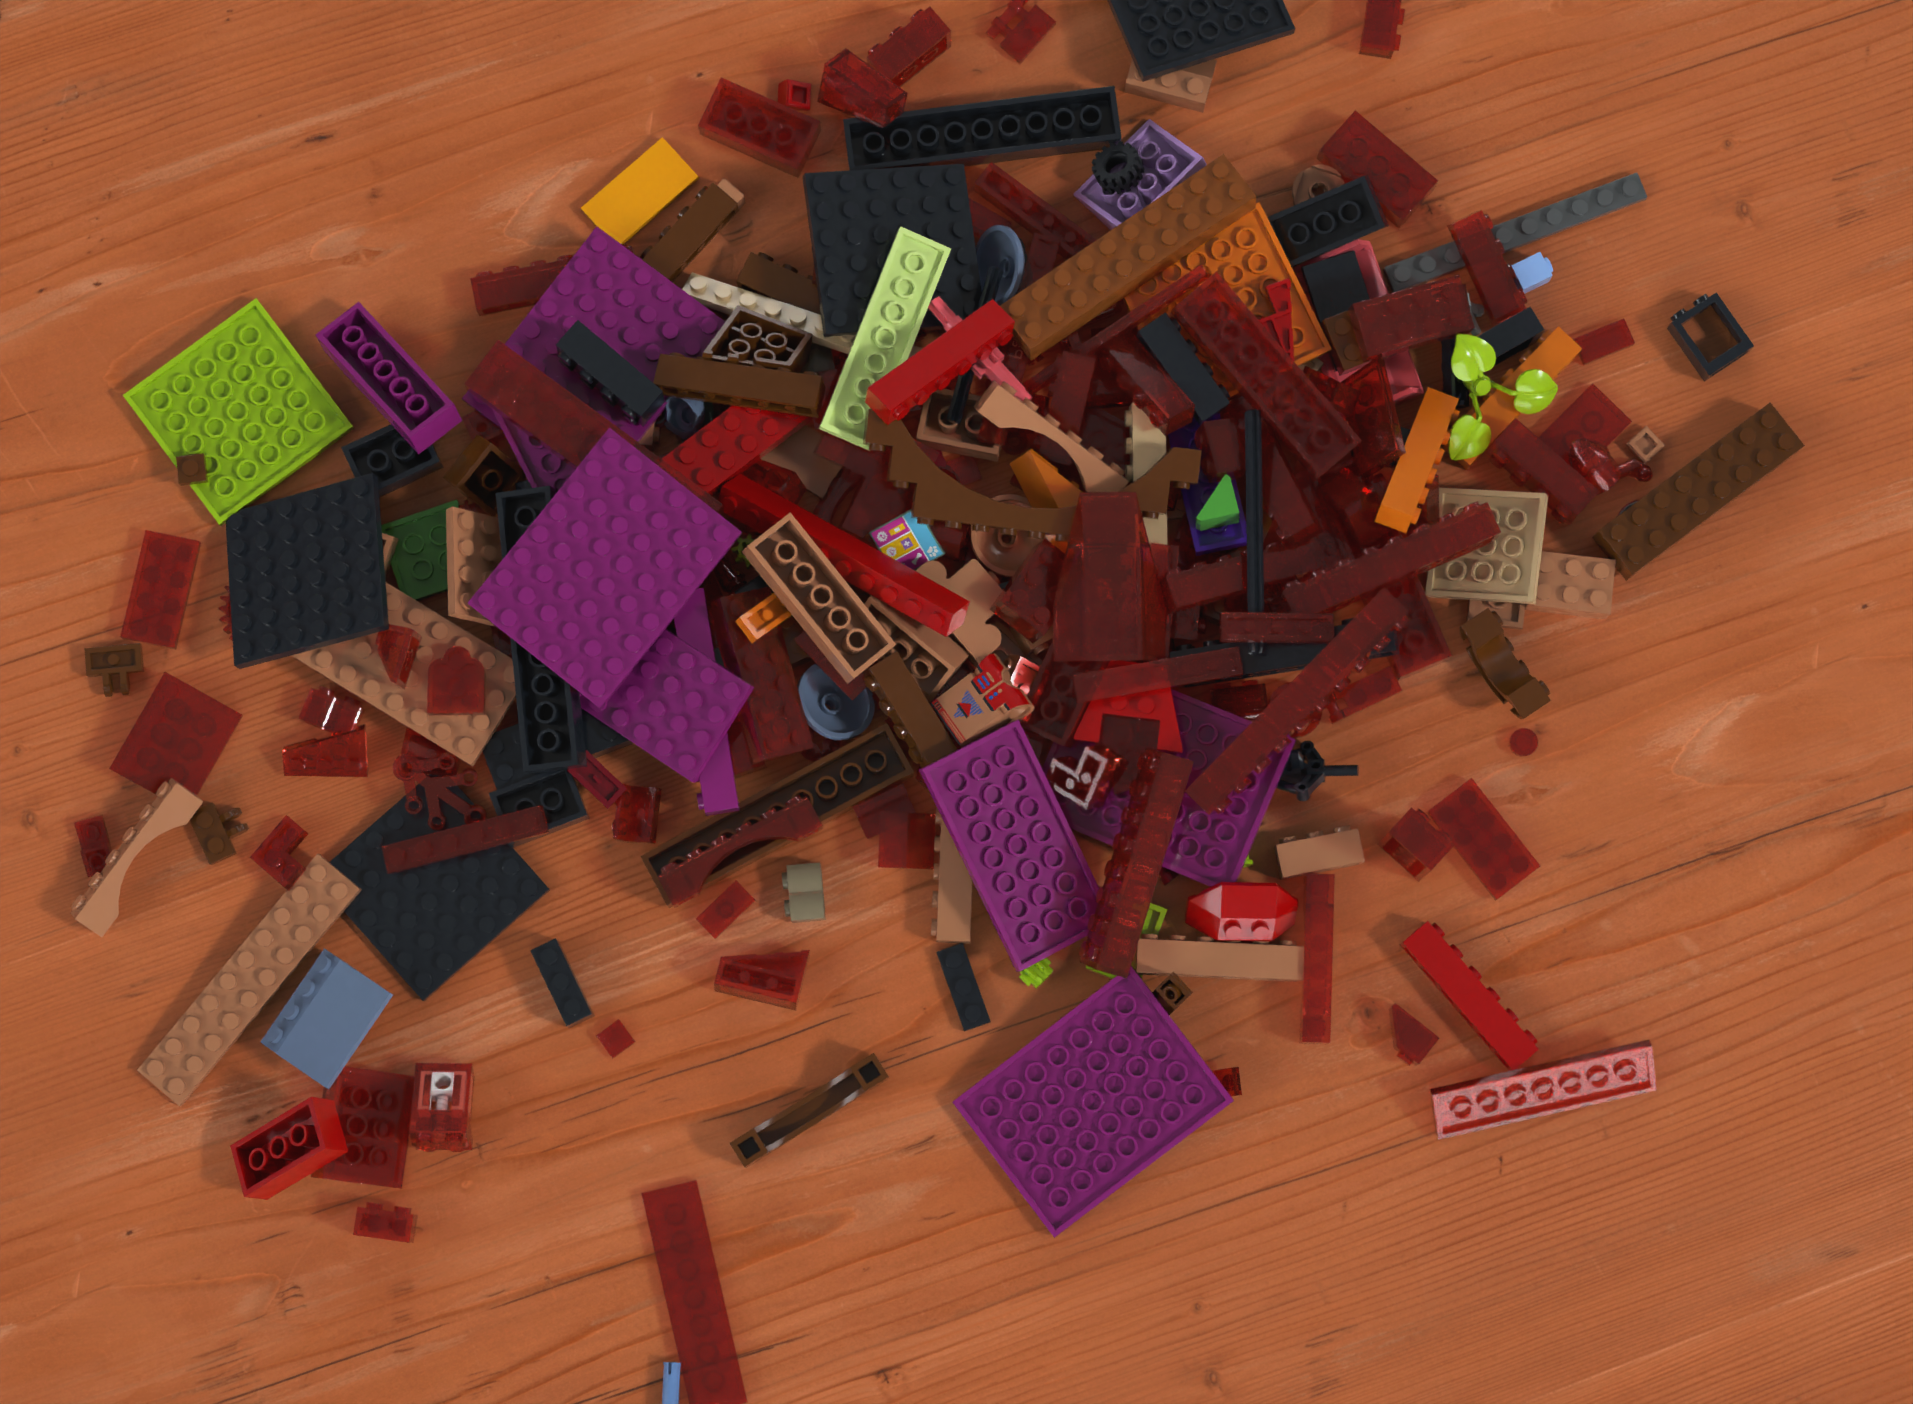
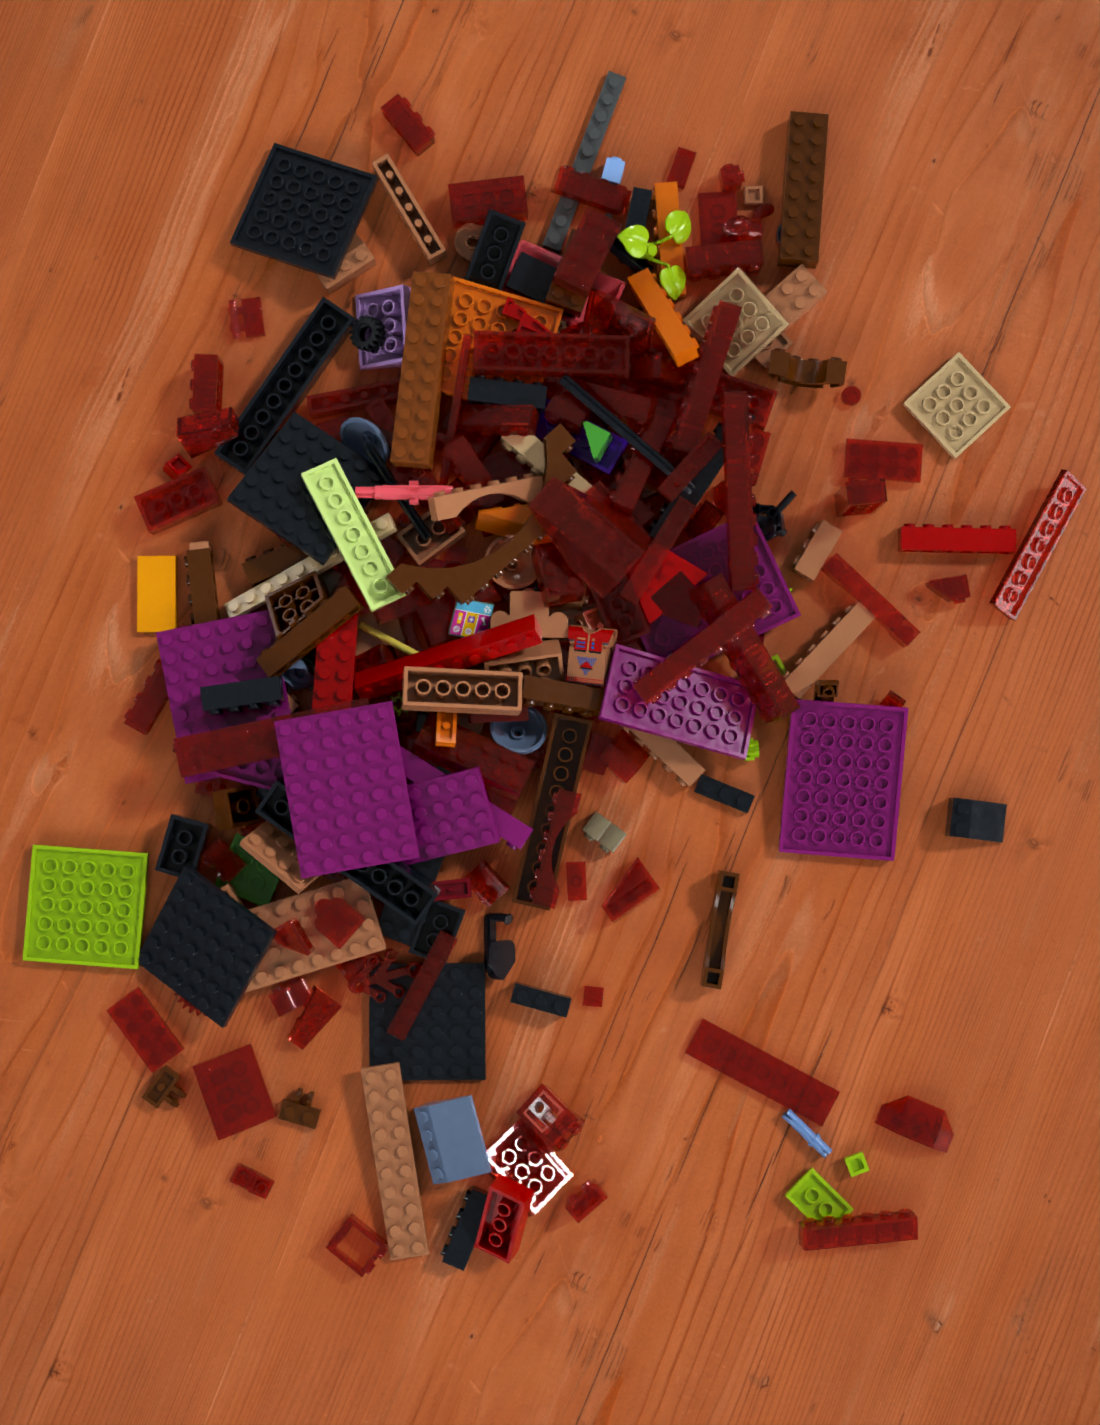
camera: 50 degrees left, 5 degrees up
(100, 903) = (268, 1126): nougat arch -> none
(141, 990) = (367, 1231): none -> clear red window
(192, 469) = (95, 958): reddish brown plate -> none
(231, 1124) = (465, 1233): none -> black brick
(276, 852) = (340, 1090): clear red plate -> none
(389, 377) = (140, 812): magenta brick -> none
(415, 512) = (223, 860): none -> clear red brick
(572, 895) = (498, 955): none -> black piece
(807, 475) = (387, 639): none -> light yellow bar
(940, 362) = (394, 517): red brick -> none
(1086, 780) = (677, 632): clear red brick -> none
(1095, 809) = (702, 645): none -> clear red brick
(1180, 1290) = (975, 819): none -> black slope
(1242, 911) = (813, 617): red wedge -> none
(1291, 94) = (409, 209): none -> nougat brick
(1617, 866) = (956, 405): none -> tan plate
(1640, 403) = (730, 178): none -> clear red brick
(1705, 369) = (727, 127): black window -> none

